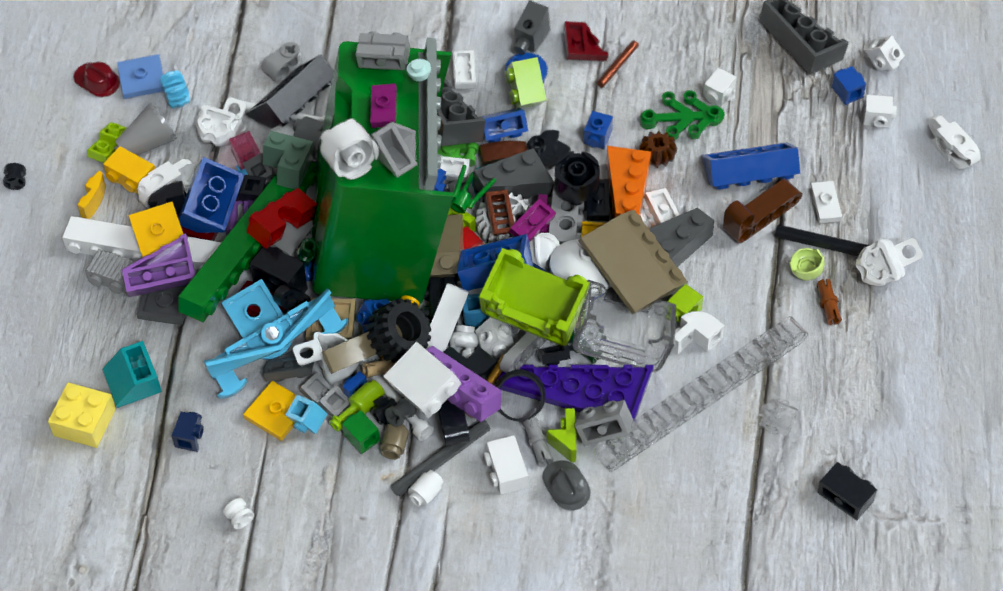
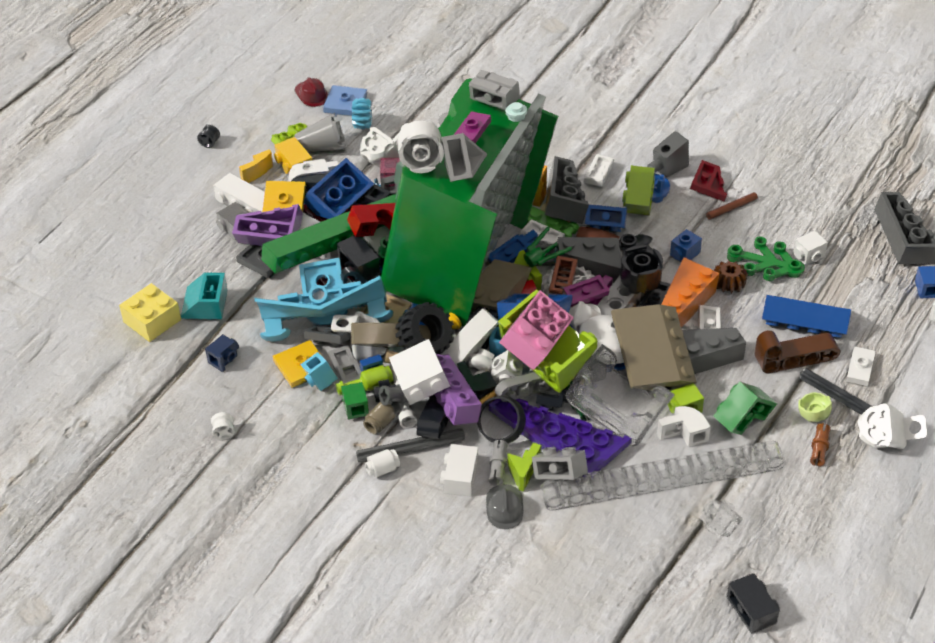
camera: 25 degrees right, 10 degrees down
(523, 292) = (536, 330): none -> bright pink slope
(745, 288) = (742, 406): none -> brick

